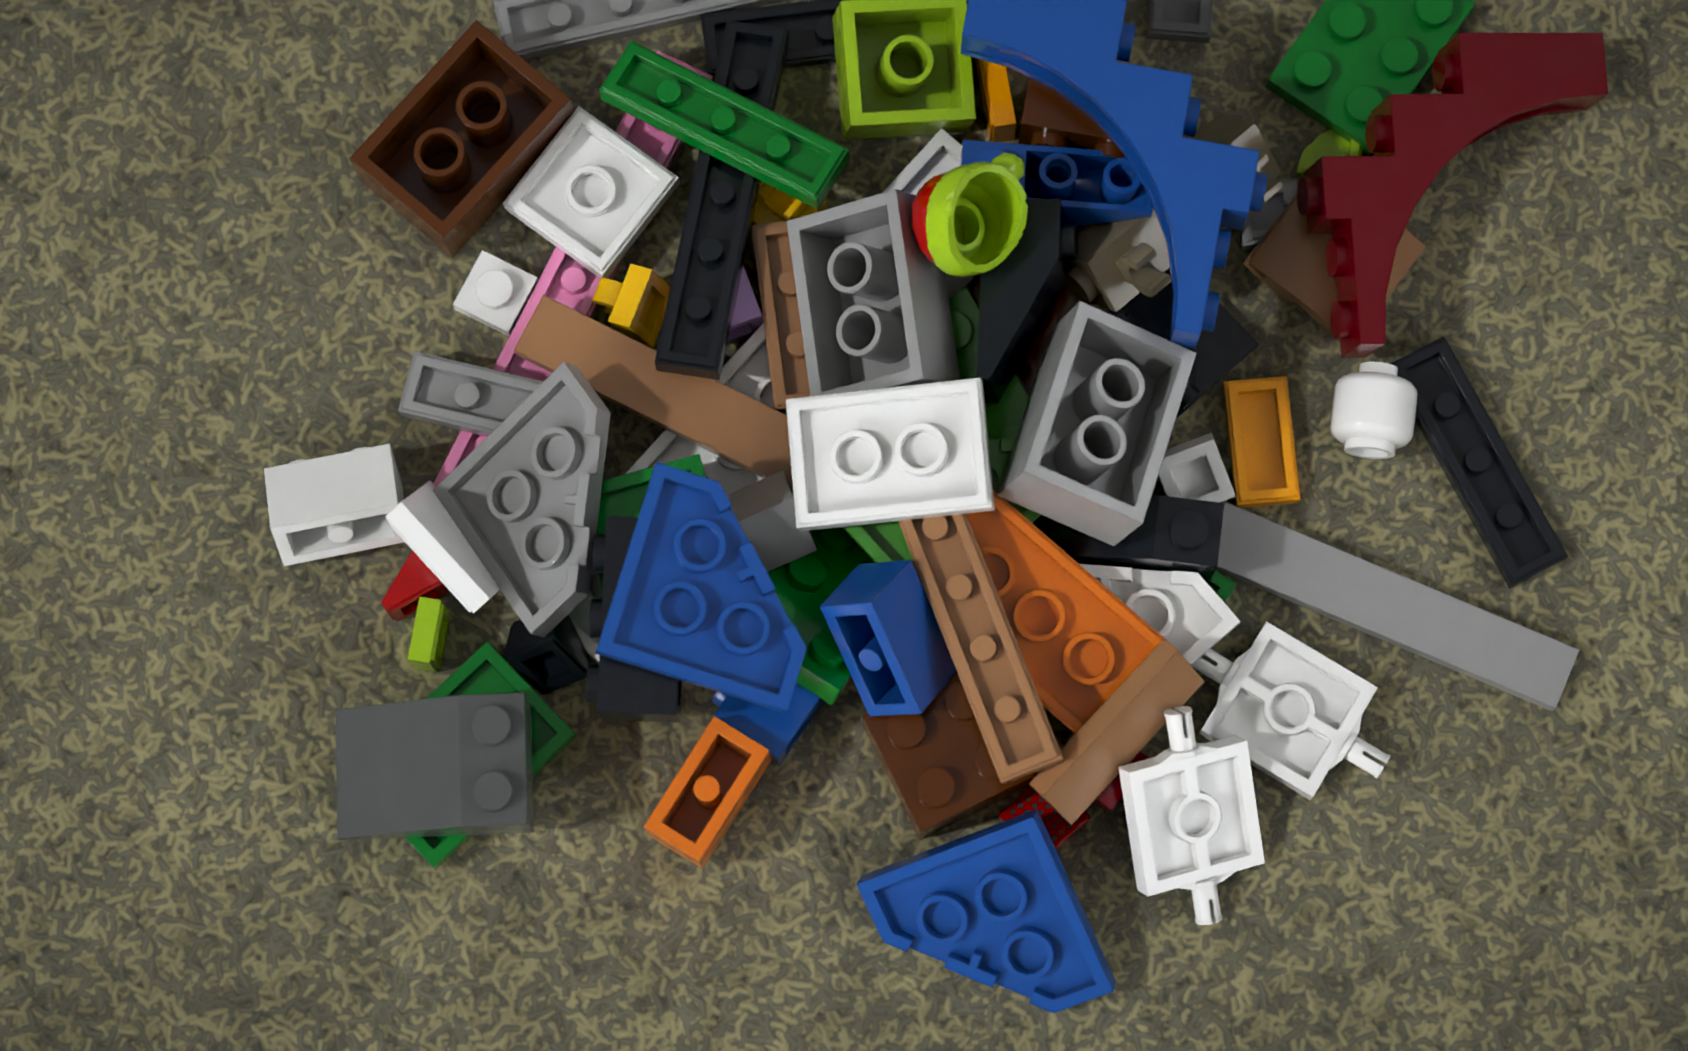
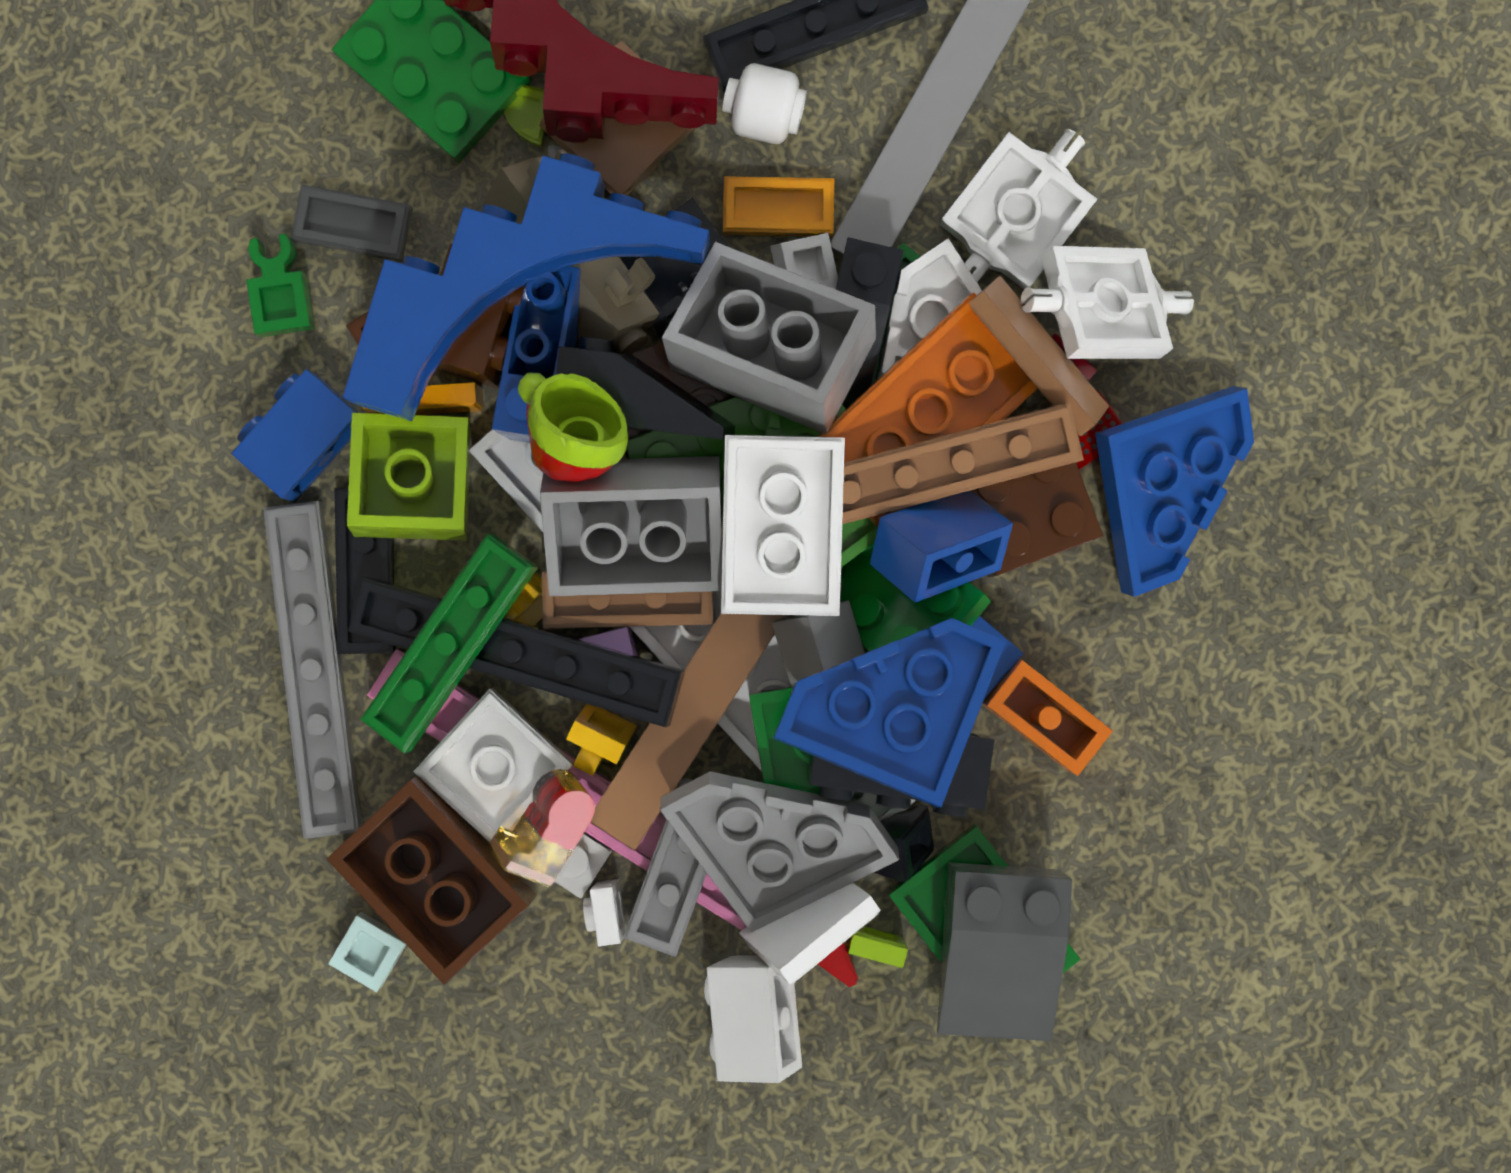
camera: 85 degrees left, 10 degrees up
(373, 81) = (368, 952): none -> light aqua plate
(441, 331) = (605, 912): none -> white plate
(527, 253) = (546, 830): none -> leg

